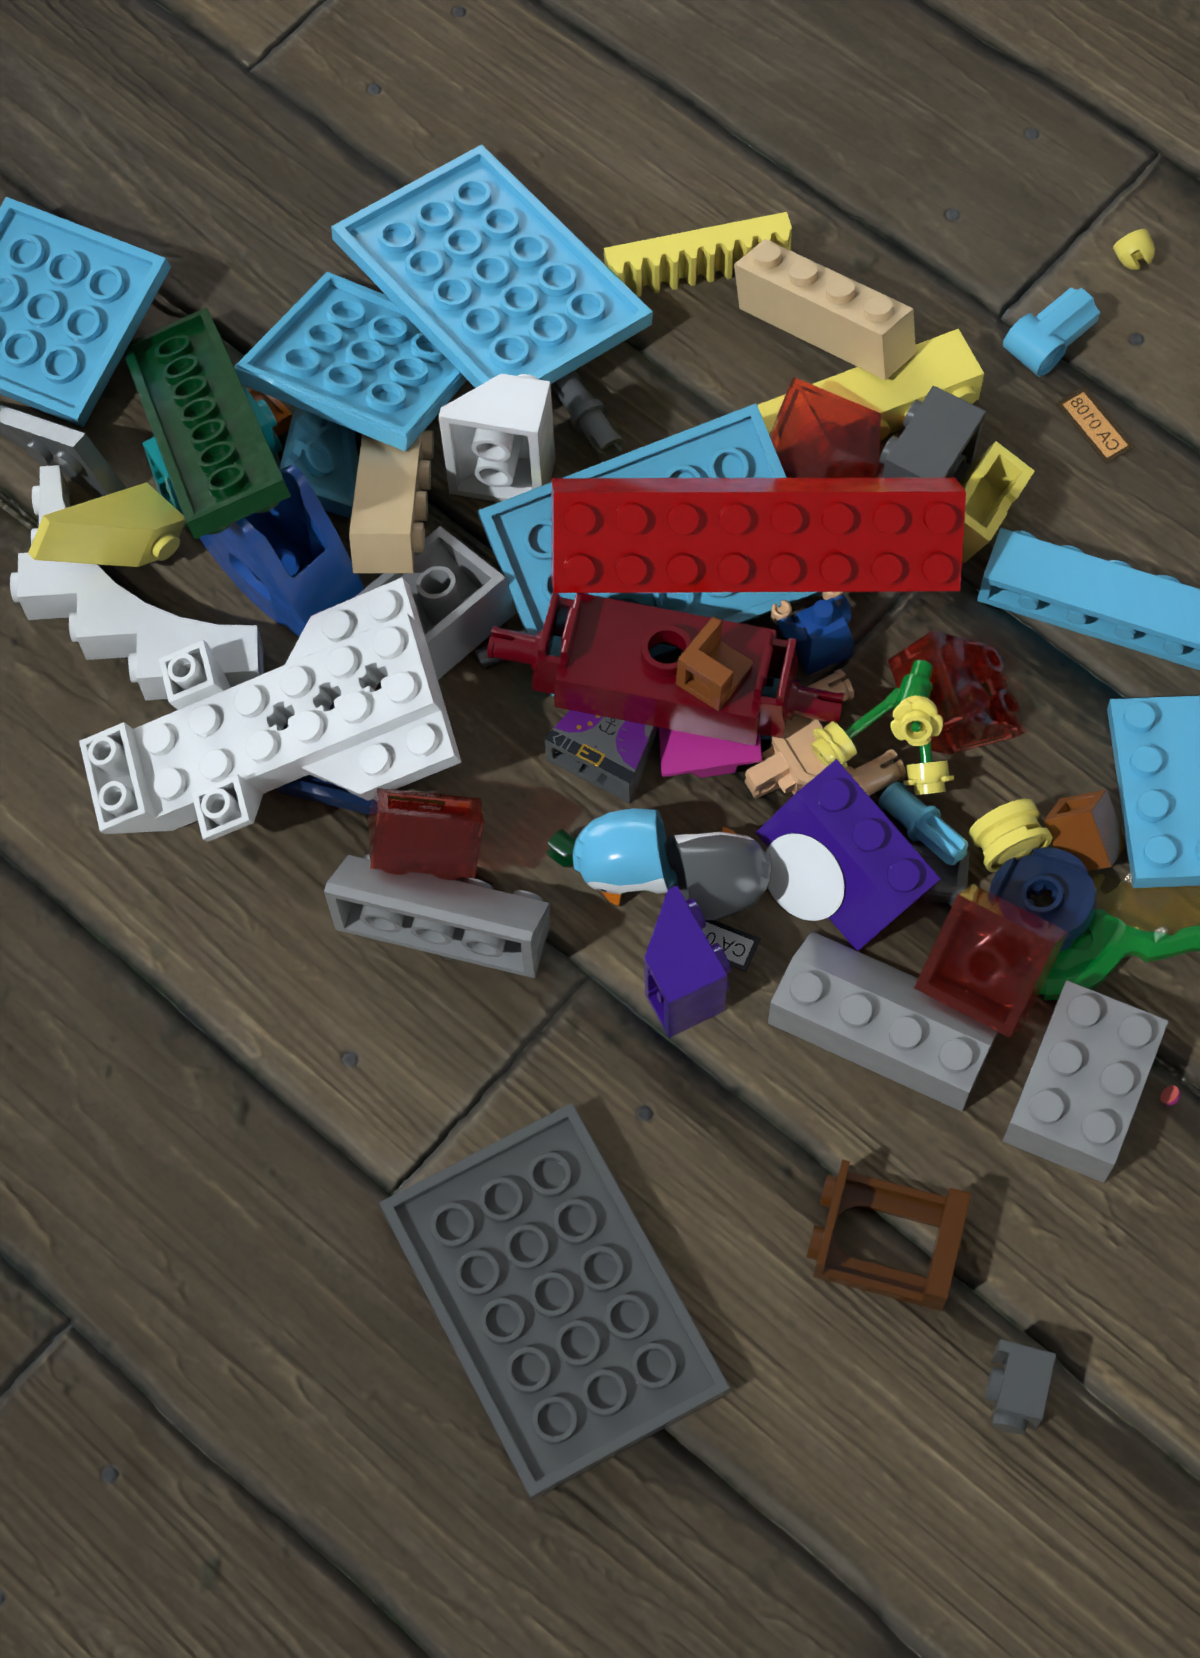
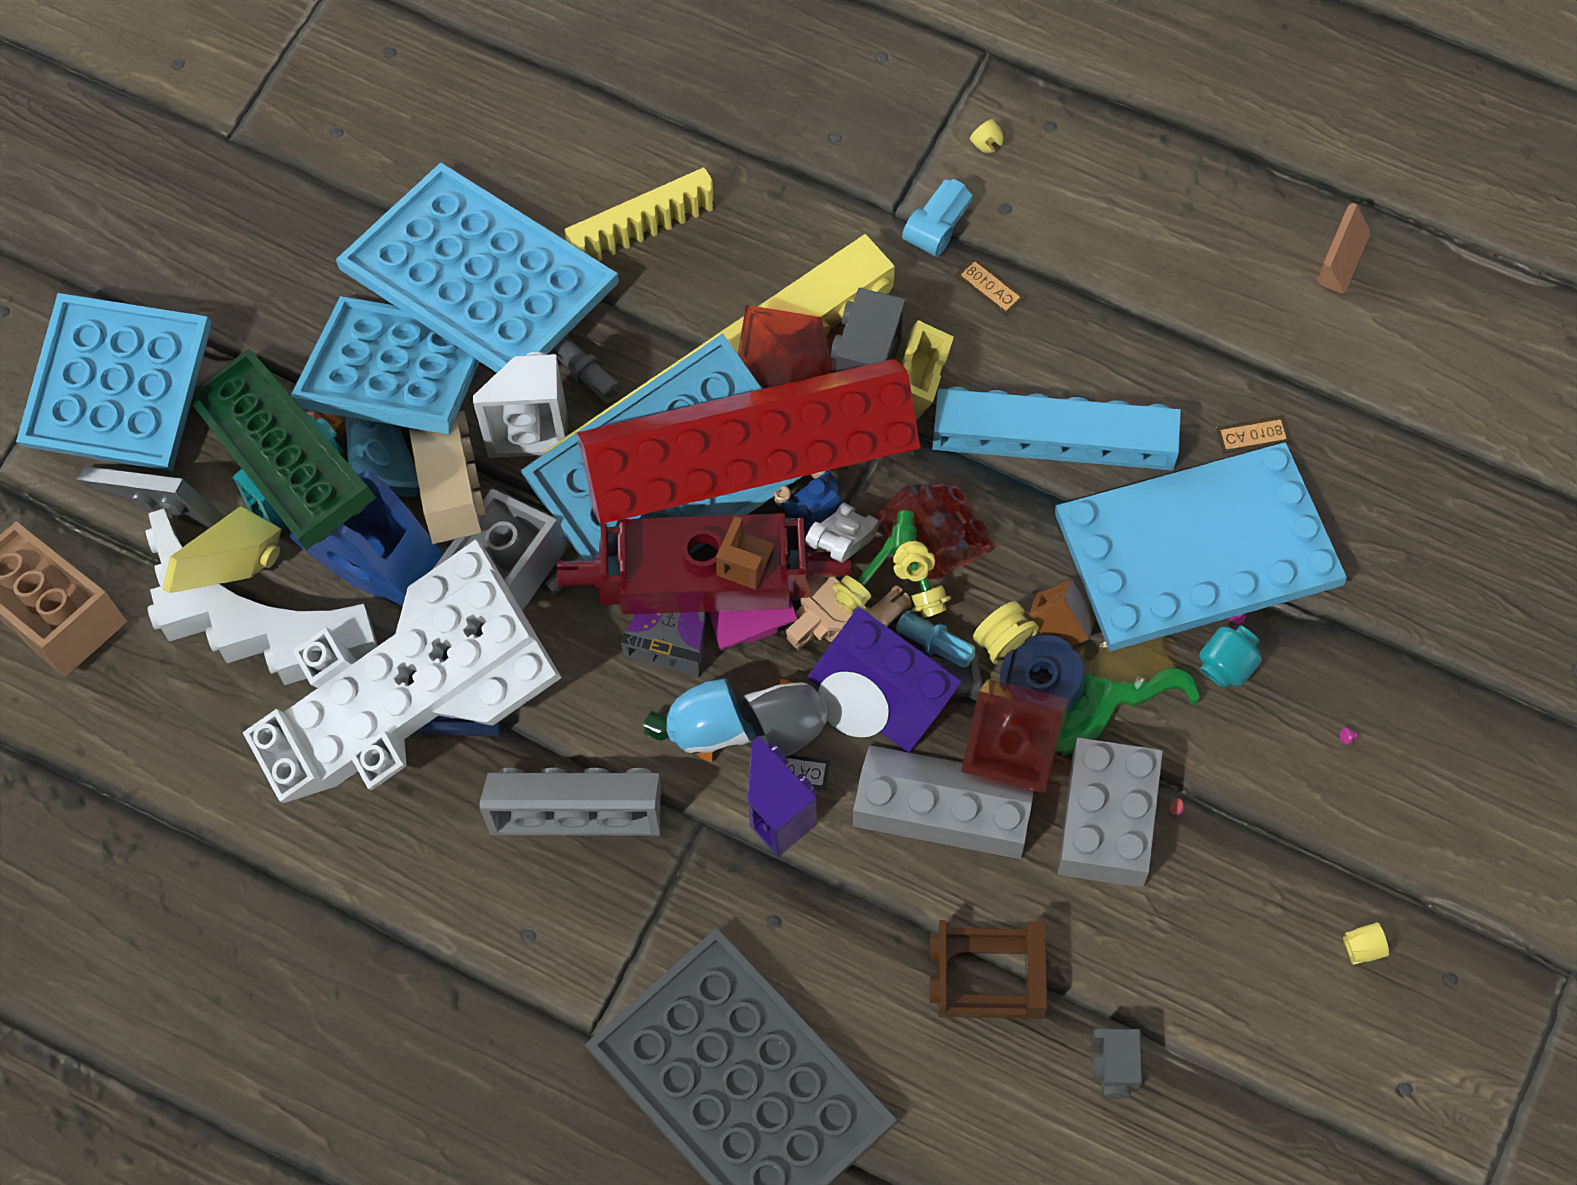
camera: 15 degrees left, 0 degrees up
(425, 833) = (546, 741): clear red slope -> none
(826, 309) = (755, 241): tan brick -> none
(841, 670) = (843, 533): none -> white plate

